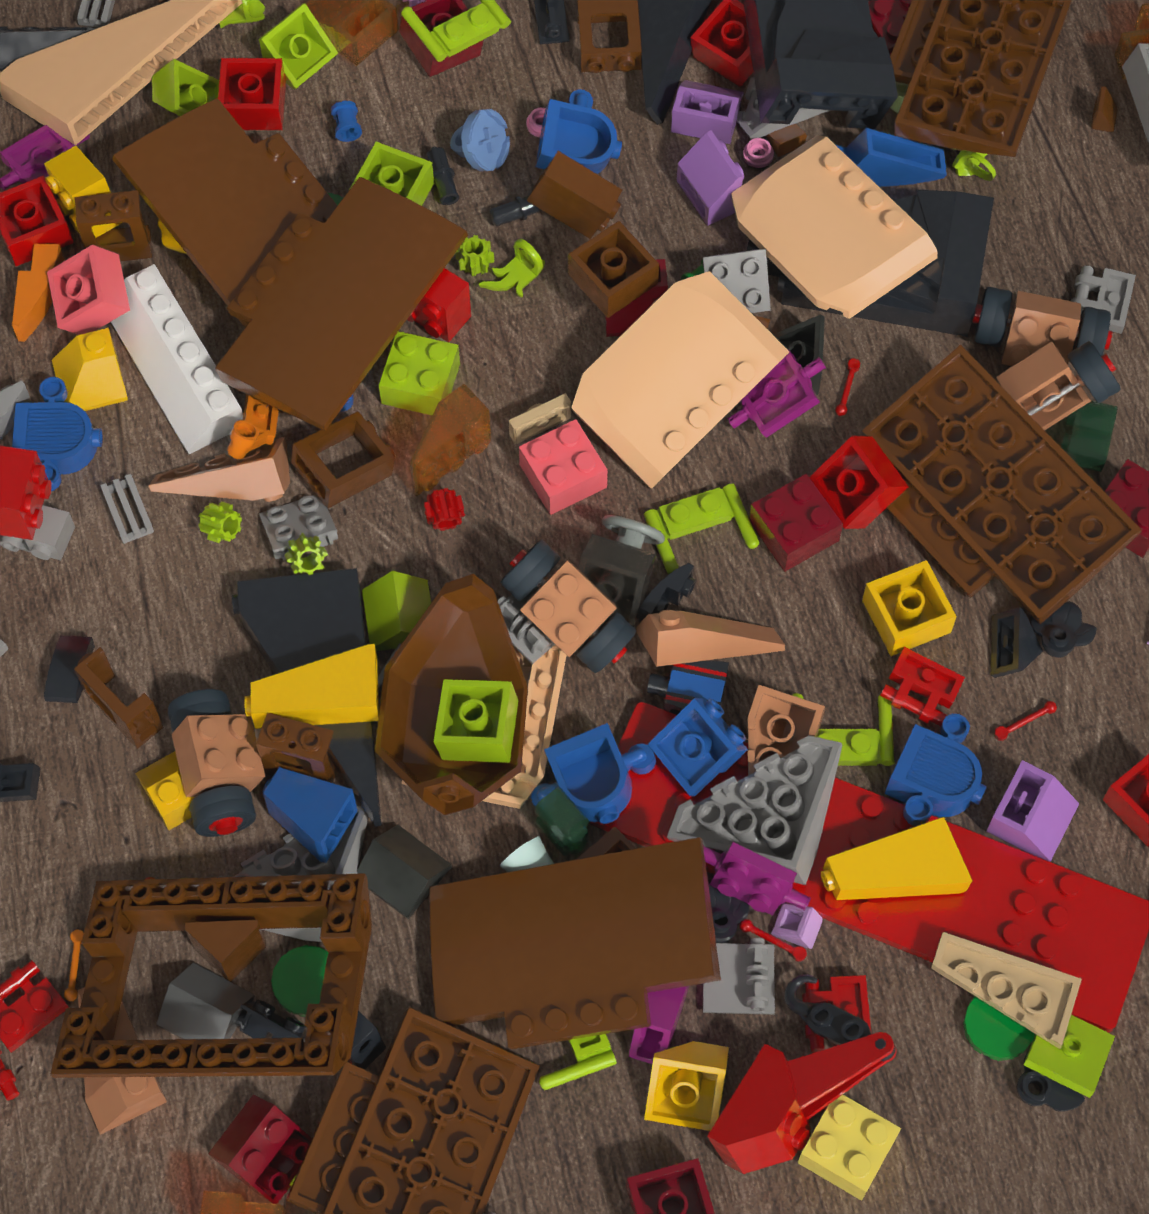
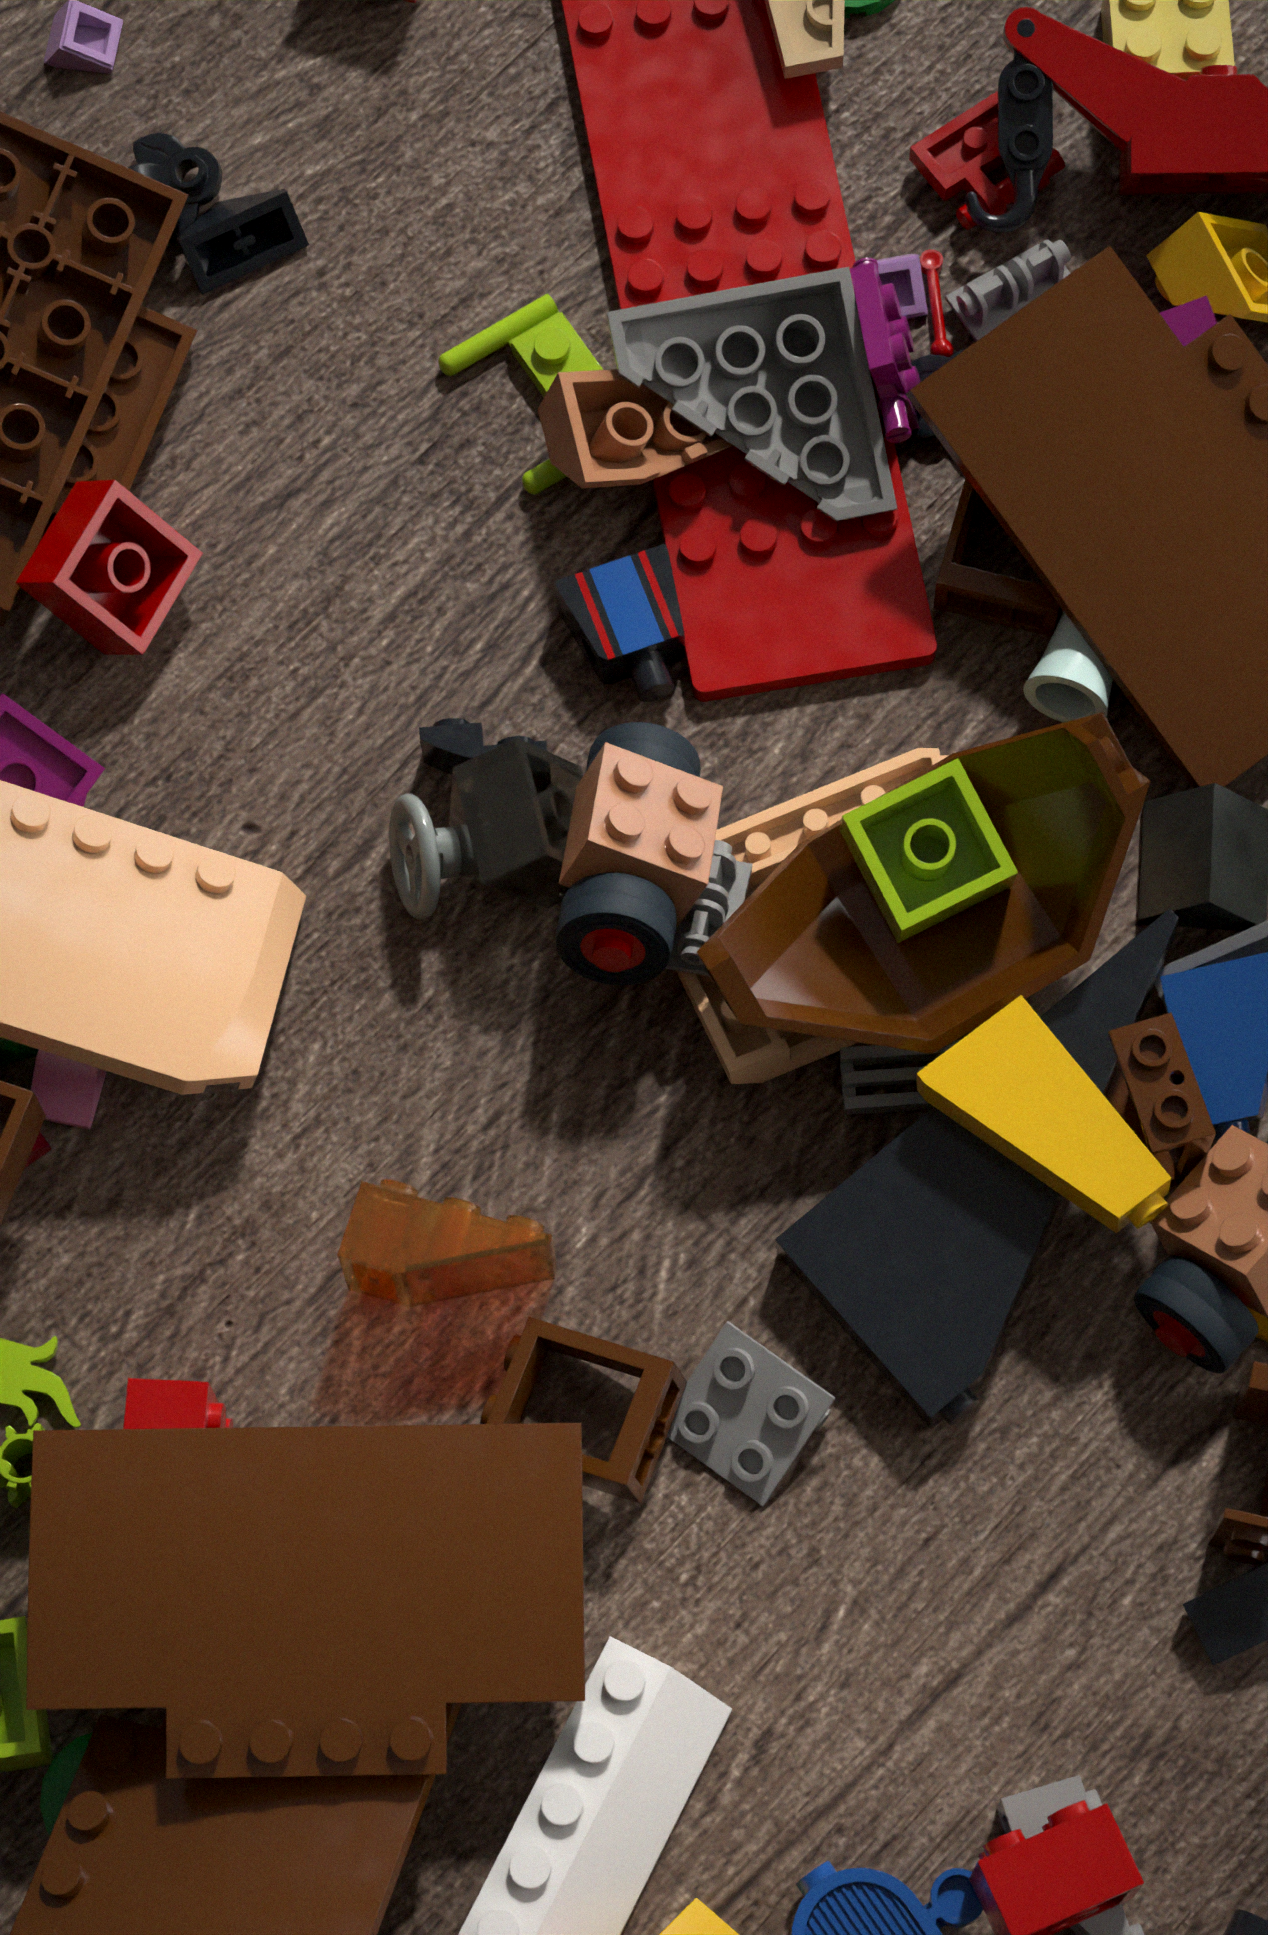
camera: 120 degrees left, 5 degrees up
(118, 487) = (938, 1685): light grey tile -> none
(220, 522) = (835, 1538): lime gear -> none
(255, 429) = (623, 1590): orange plate -> none
(255, 477) = (724, 1579): wedge -> none
(310, 562) = (808, 1334): lime gear -> none
(394, 608) = (792, 1145): lime slope -> none
(418, 373) = (329, 1375): lime brick -> none
(444, 509) = (564, 1186): red gear -> none
(540, 418) = (288, 1146): tan plate -> none
(562, 822) = (982, 658): clear green brick -> none
(563, 467) = (361, 1047): coral brick -> none
(595, 773) = (873, 669): blue piece -> none
(692, 637) = (540, 656): nougat wedge -> none
(698, 514) = (303, 804): lime plate -> none
(698, 745) = (728, 532): blue plate -> none
(795, 522) = (232, 637): dark red brick -> none
(899, 865) = (723, 173): yellow slope -> none
(909, 608) = (282, 390): yellow brick -> none
(925, 678) = (381, 314): red plate -> none
(937, 773) = (534, 218): blue piece -> none
(1001, 732) = (395, 183): red hinge -> none
(1034, 812) = (507, 72): medium lavender slope -> none

